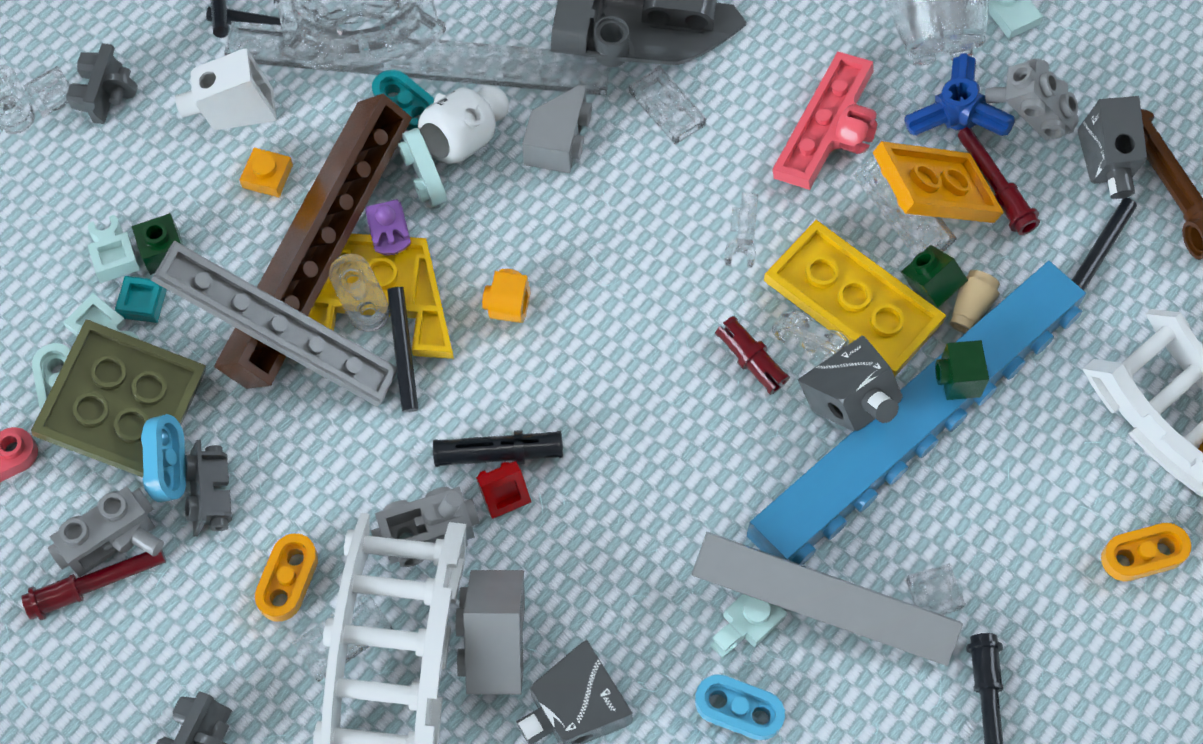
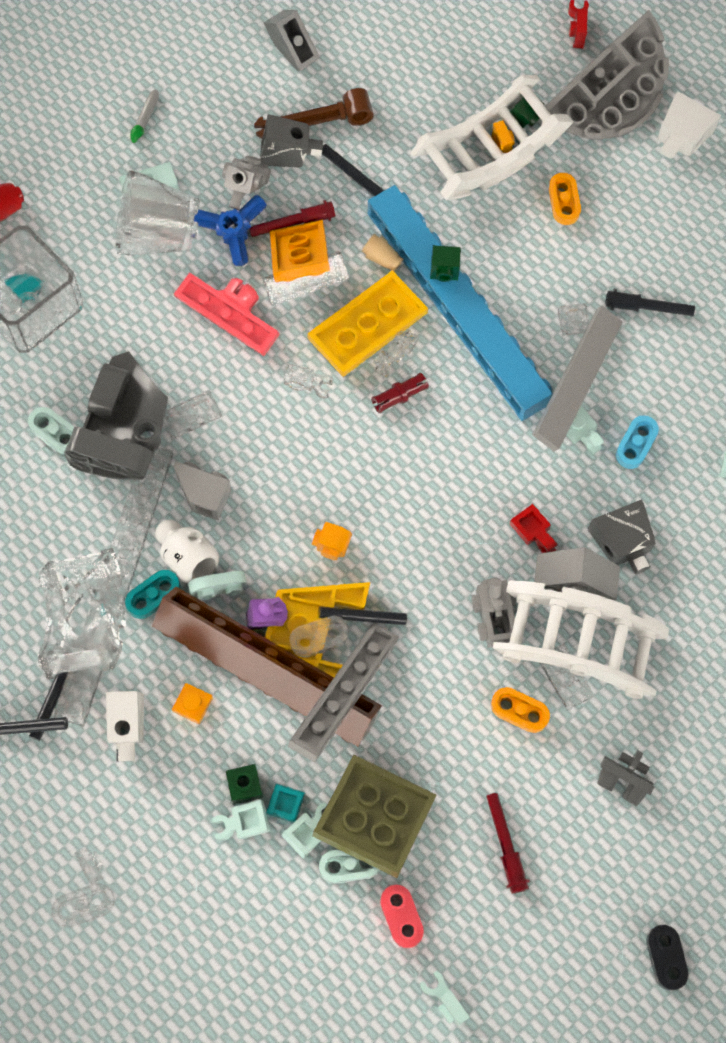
camera: 85 degrees left, 5 degrees up
(106, 86) = (75, 821): dark grey hips -> none
(108, 528) = (472, 822): light grey brick -> none
(163, 458) = (439, 783): medium azure plate -> none
(204, 504) = (461, 762): dark grey hinge -> none
(498, 448) = (447, 529): black pin -> none
(503, 489) = (476, 560): red tile -> none
(569, 563) = (533, 527): none -> red plate
(853, 387) = (442, 330): dark grey torso -> none
(934, 275) = (371, 270): dark green plate -> none

